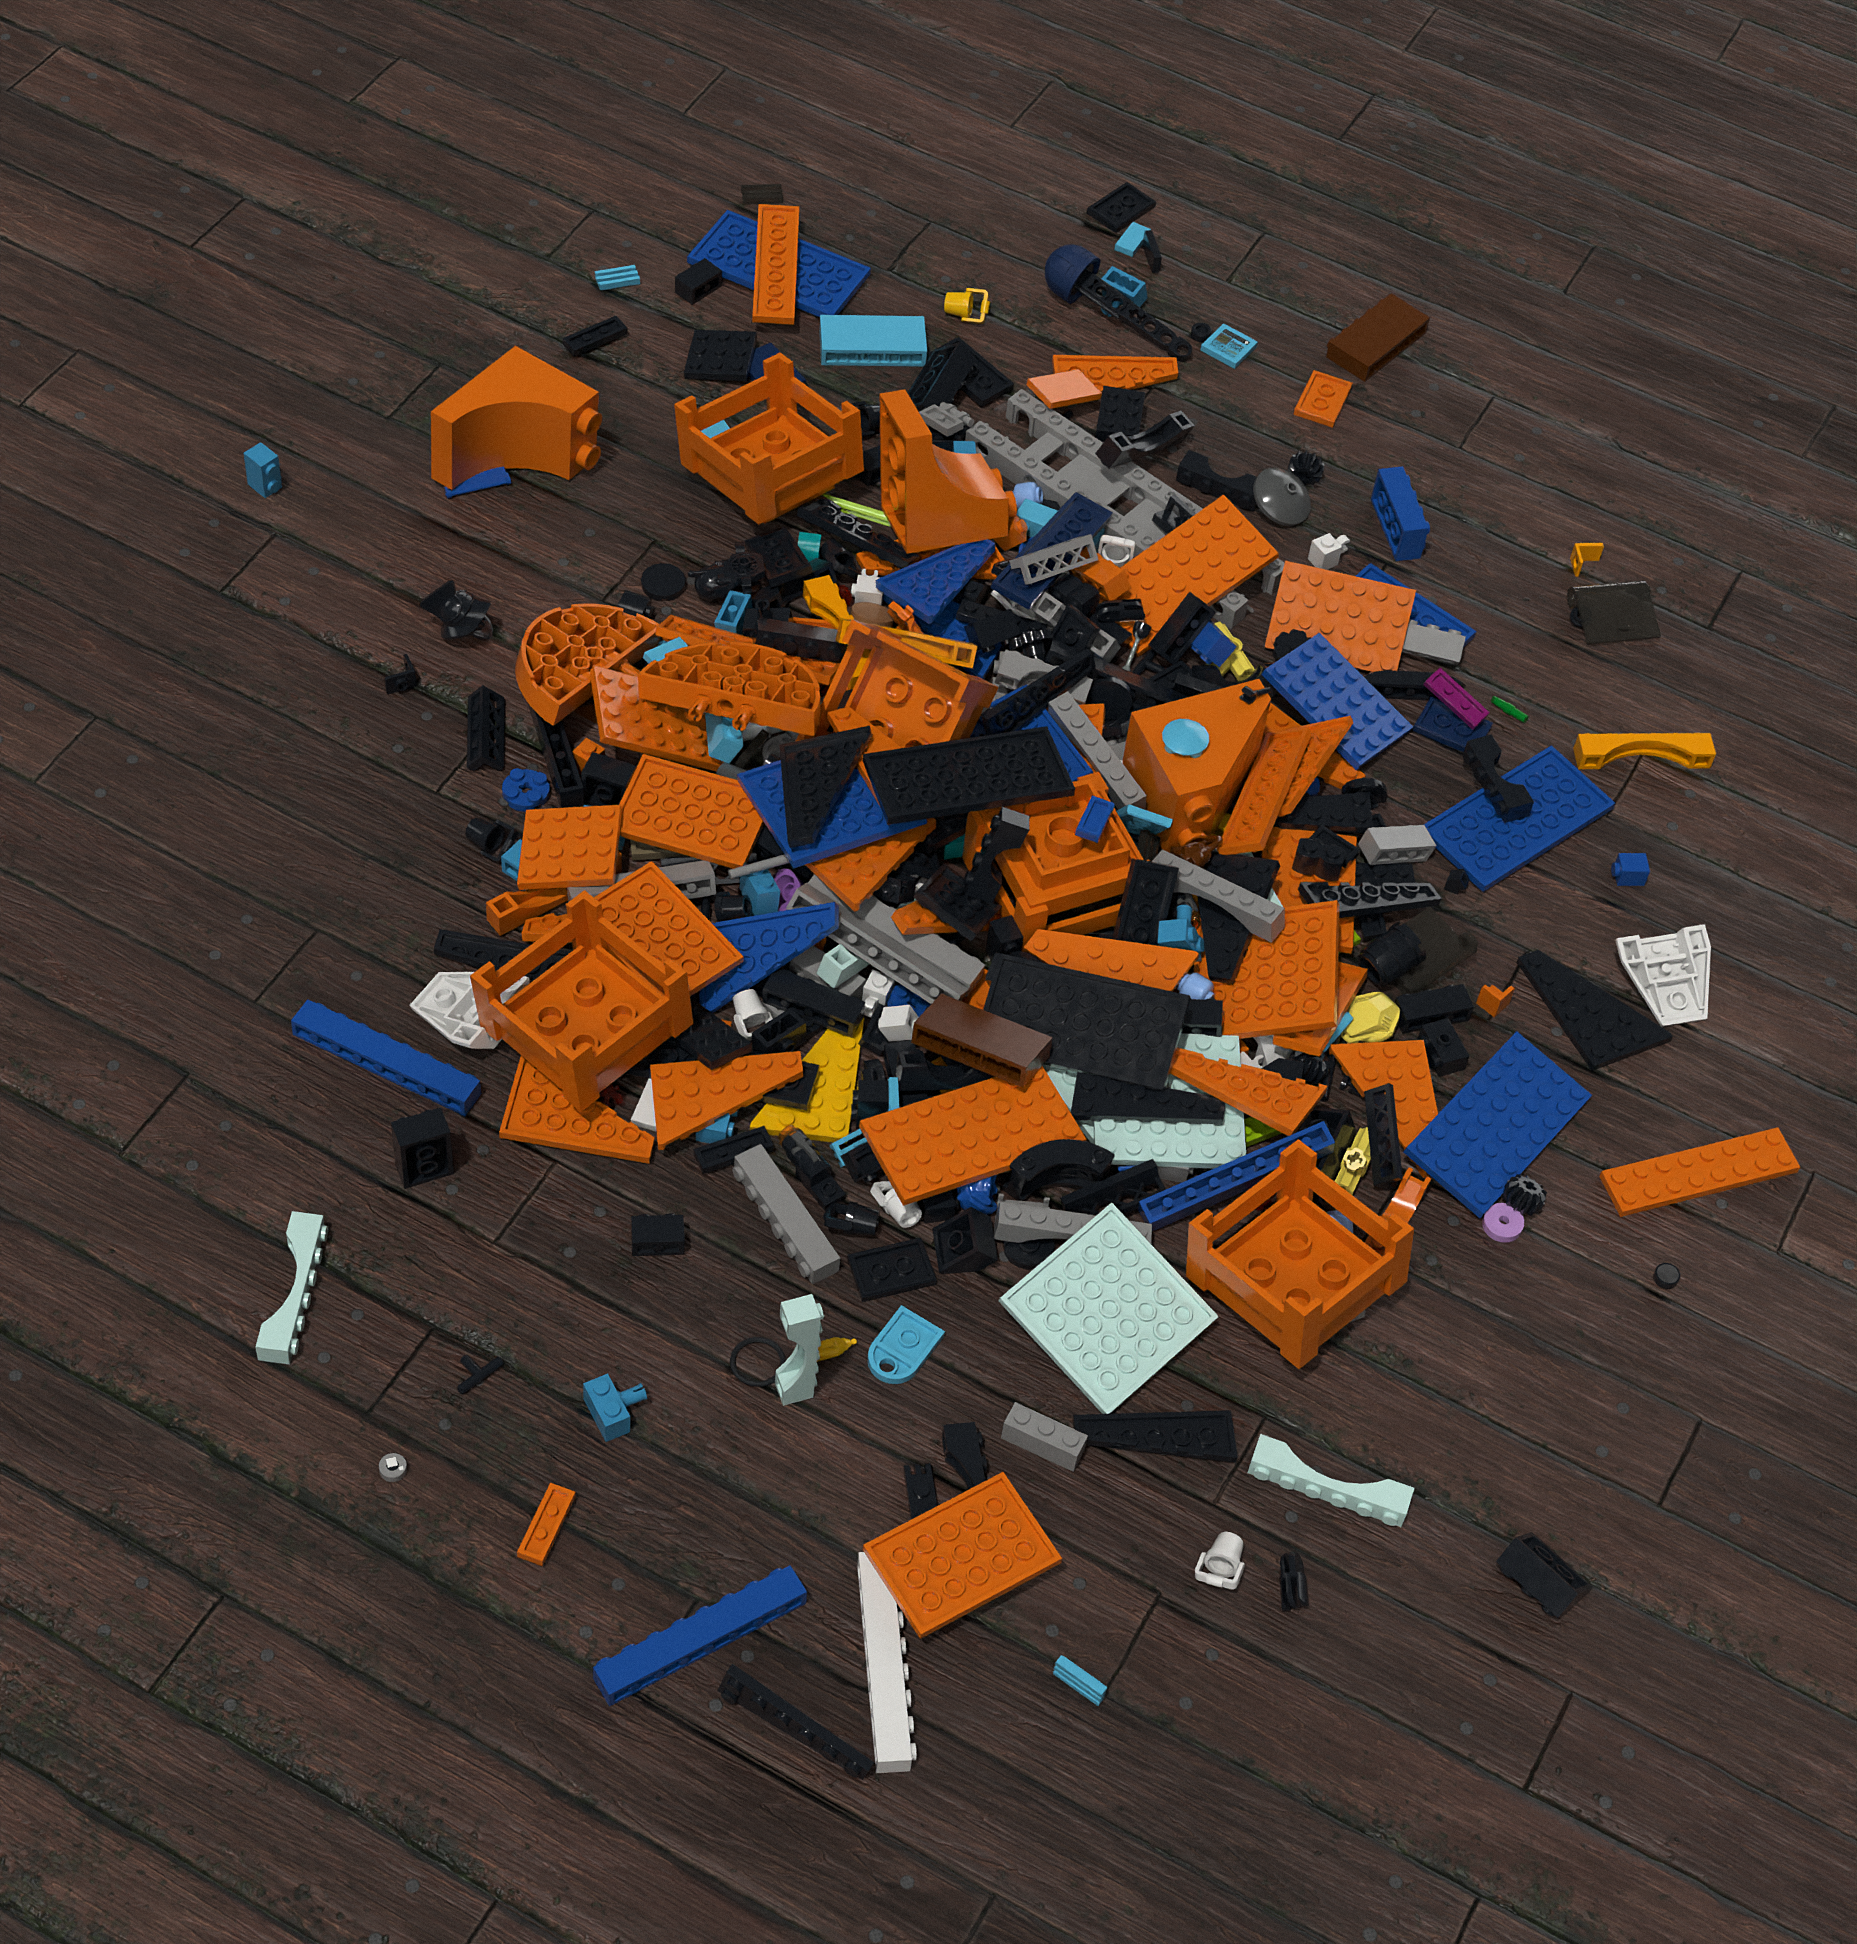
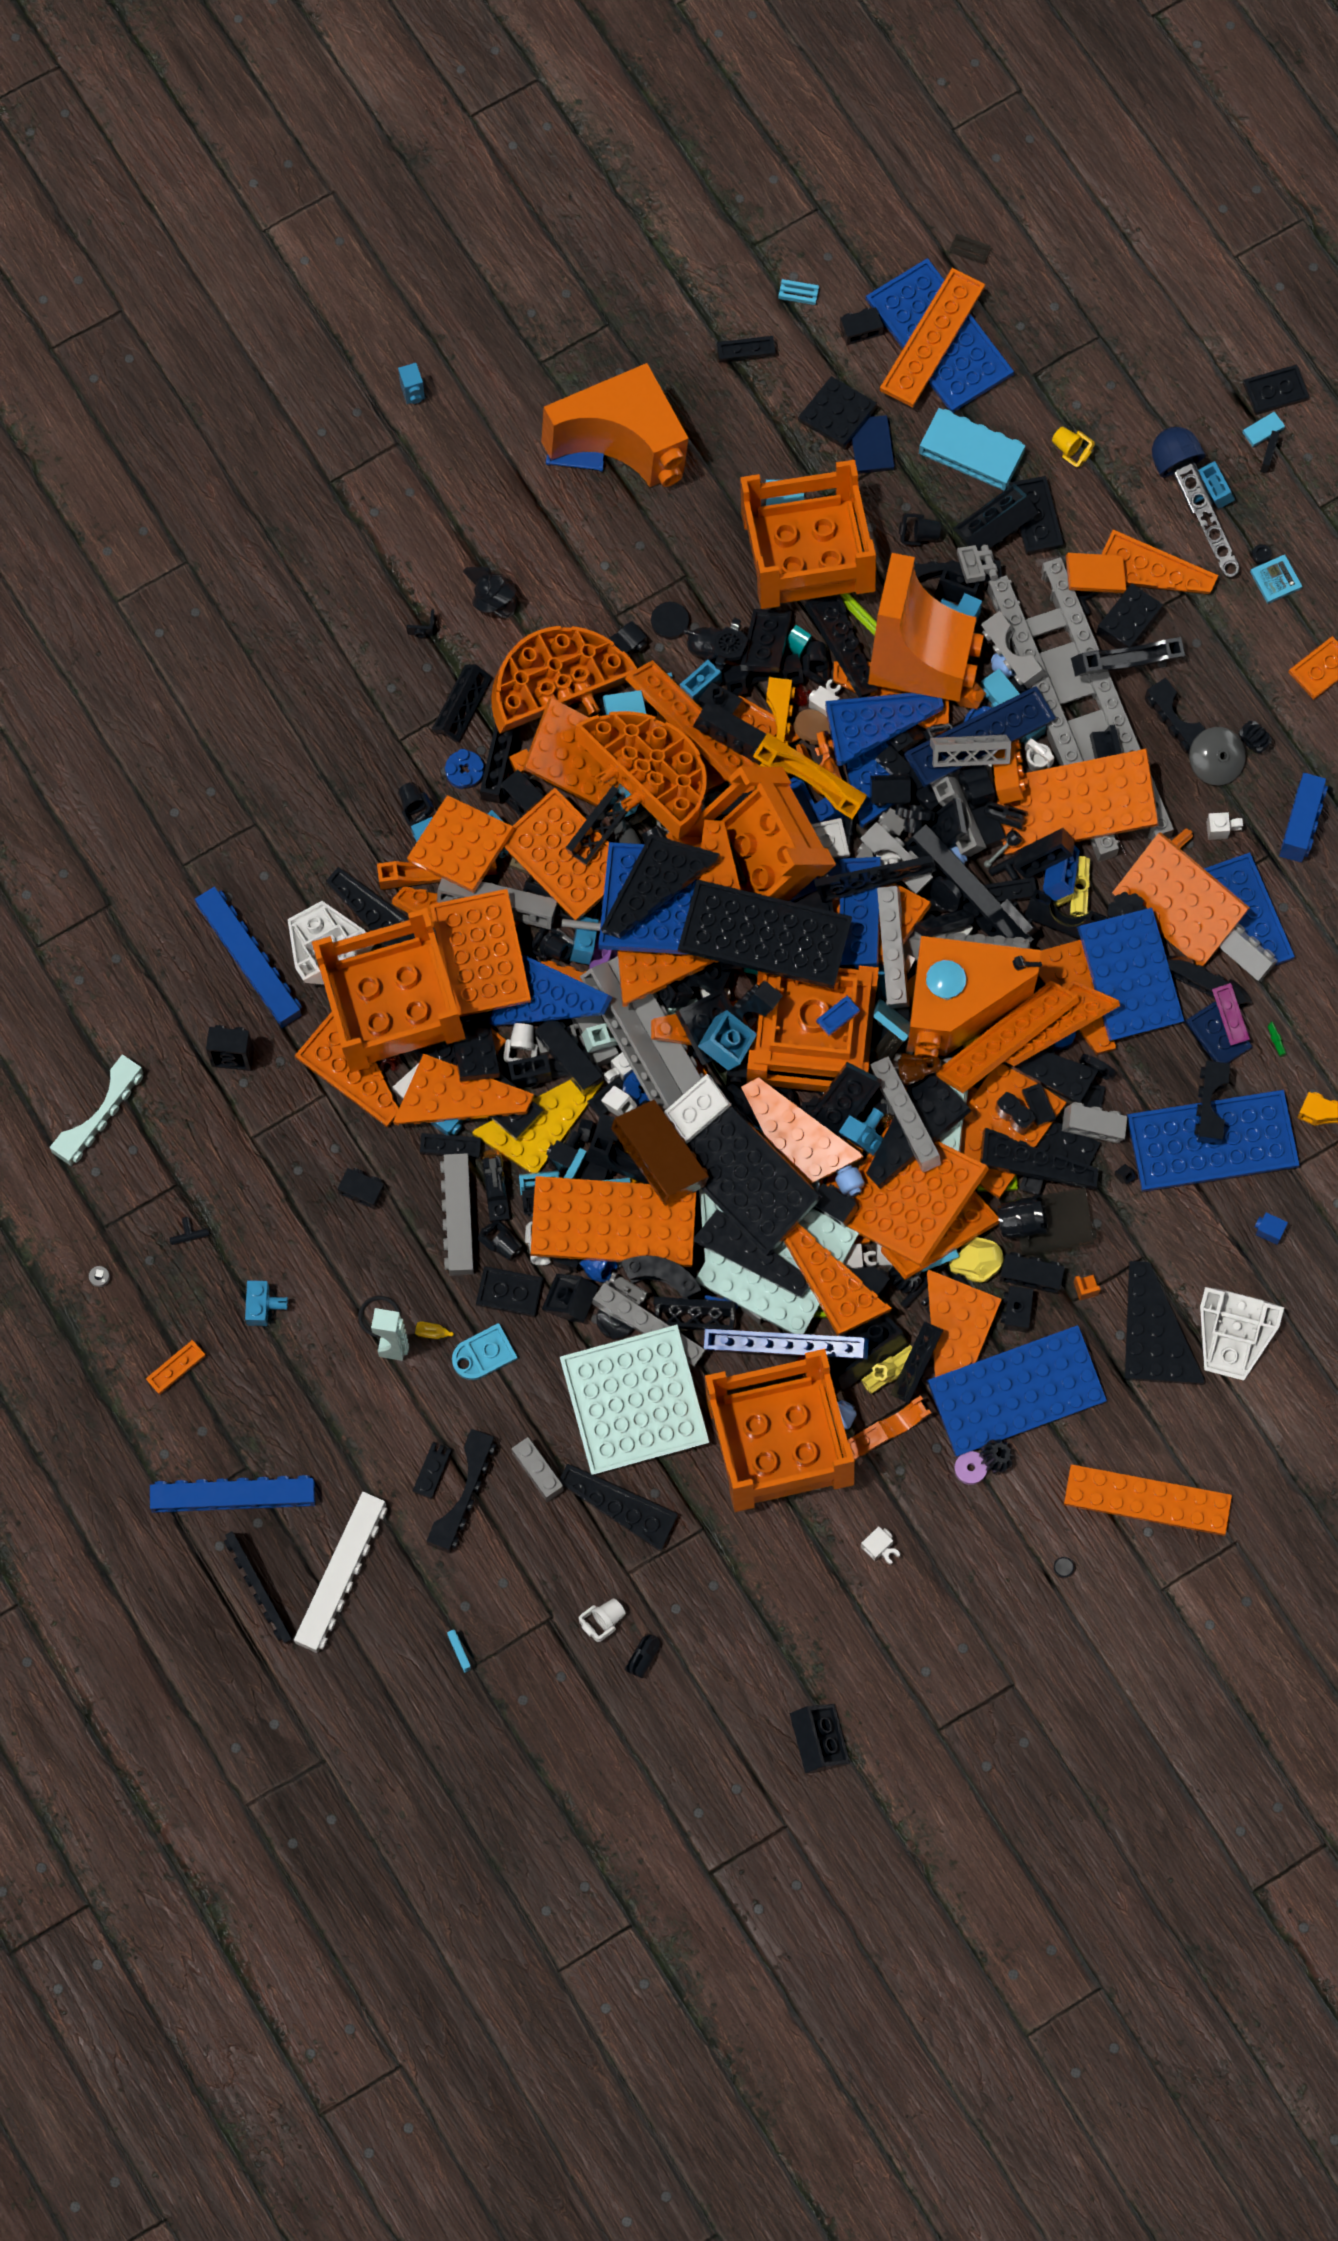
camera: 35 degrees right, 20 degrees up
(708, 762) = (591, 824): none -> black fence
(961, 1554) = (426, 1528): orange plate -> none
(985, 901) = (727, 1040): none -> dark azure brick
(995, 978) = (697, 1108): none -> white tile
(1055, 481) = (1026, 667): none -> light grey arch
(1381, 1500) = (742, 1630): light aqua arch -> none
(1465, 1341) = (878, 1544): none -> white brick

